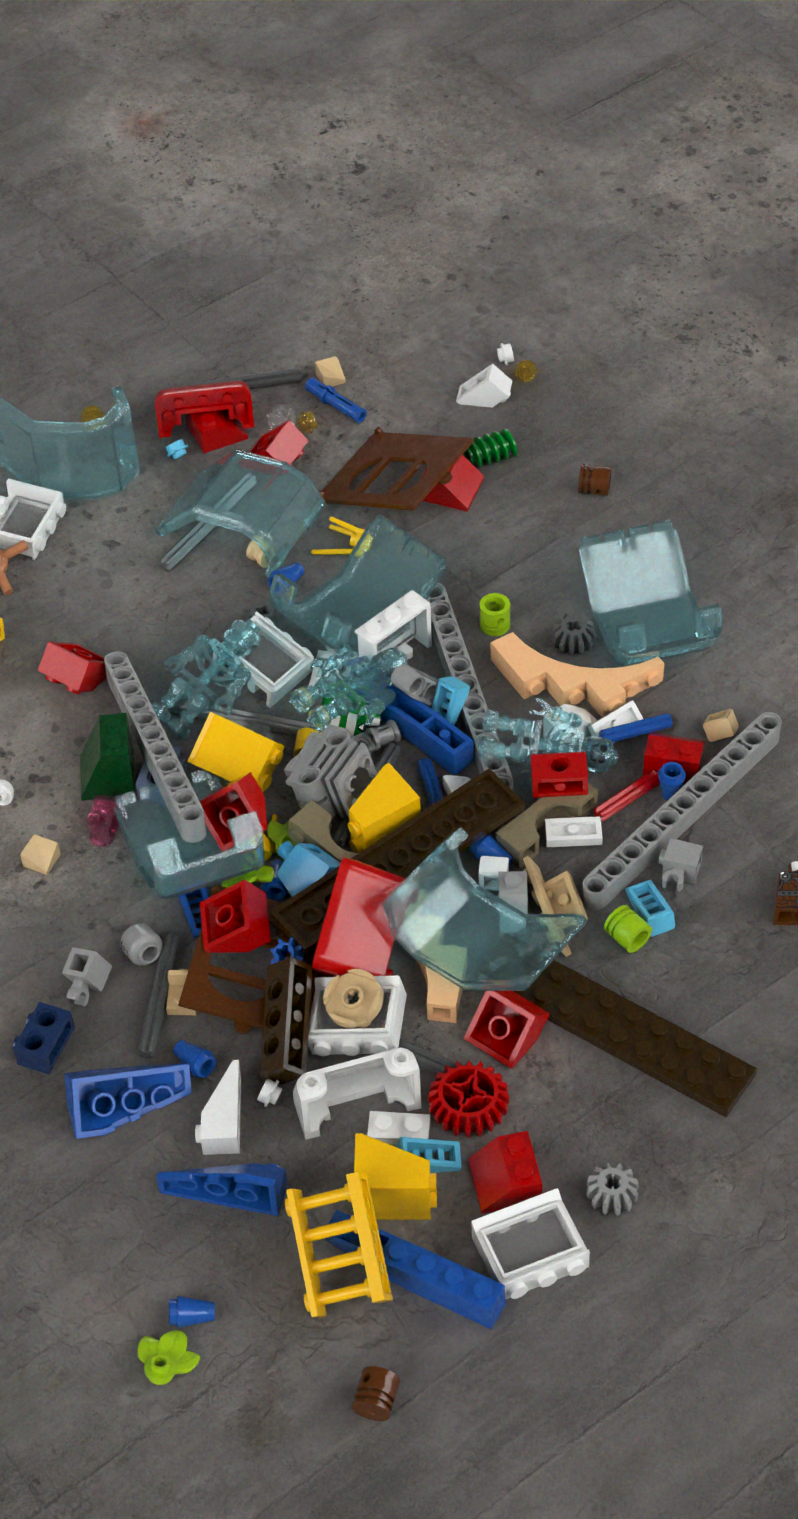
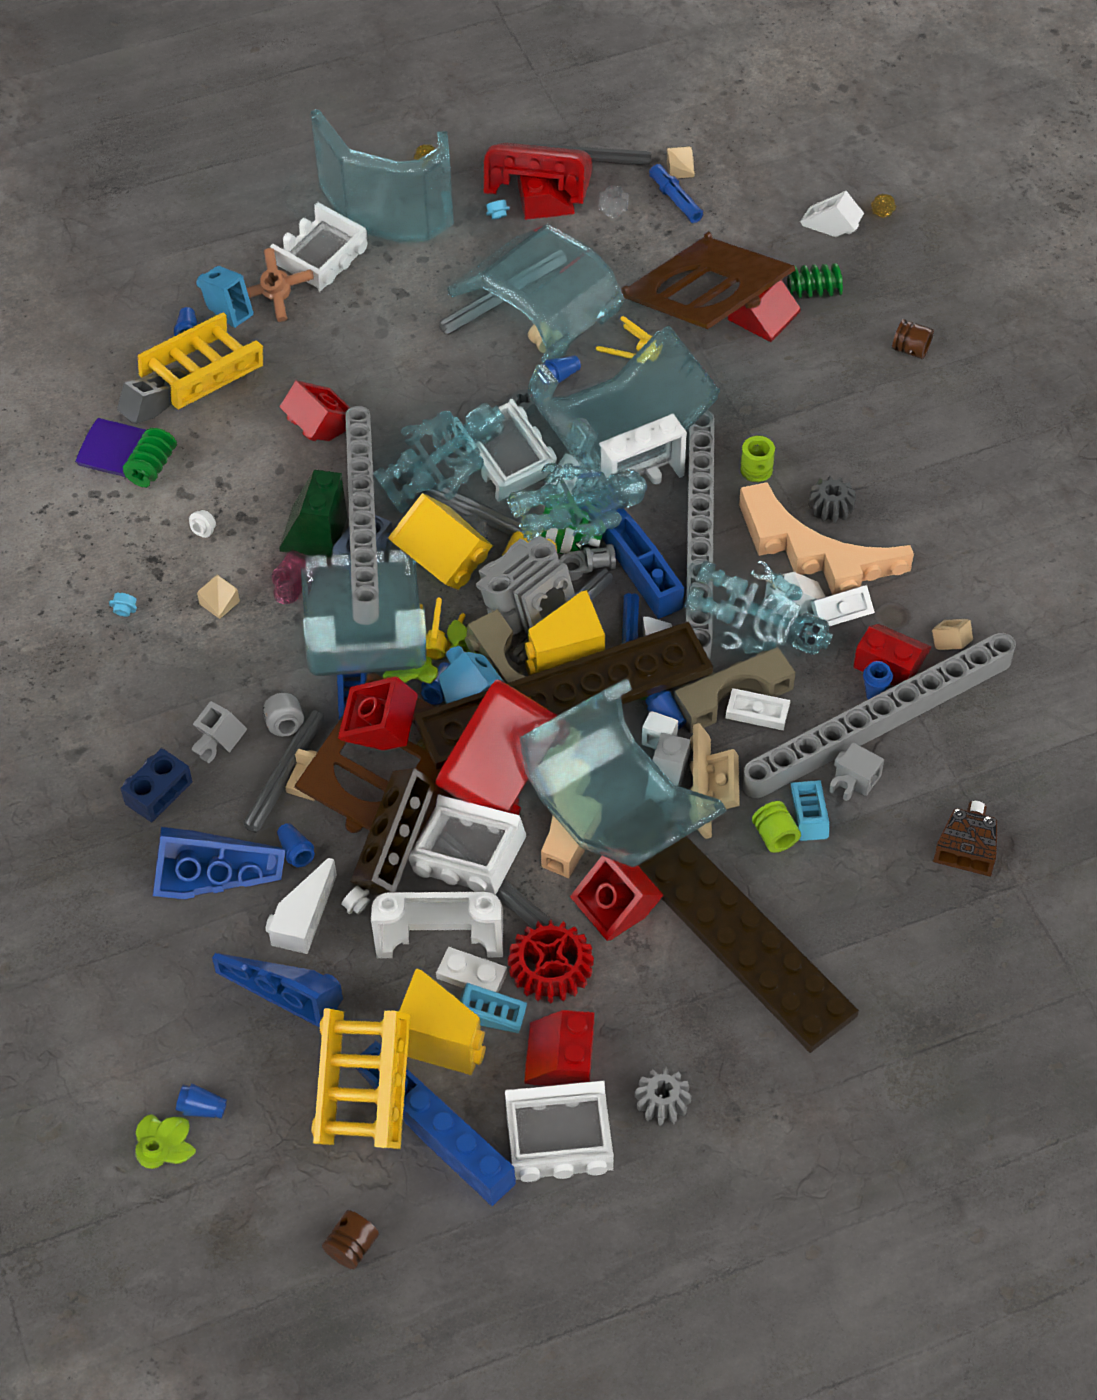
camera: 15 degrees right, 5 degrees up
(230, 802) = (418, 590): red slope -> none
(281, 443) = (601, 229): slope -> none
(284, 948) = (417, 756): blue gear -> none
(307, 421) = (639, 209): clear yellow plate -> none
(364, 1010) = (477, 839): tan plate -> none
(415, 683) = (653, 518): light grey beam -> none
(451, 689) = (679, 535): medium azure slope -> none
(505, 353) = (868, 182): white plate -> none
(559, 774) = (758, 646): red brick -> none
(627, 795) = (826, 685): red axle -> none
(637, 728) = (862, 616): blue axle -> none
(644, 595) = (919, 475): clear light blue windscreen -> none

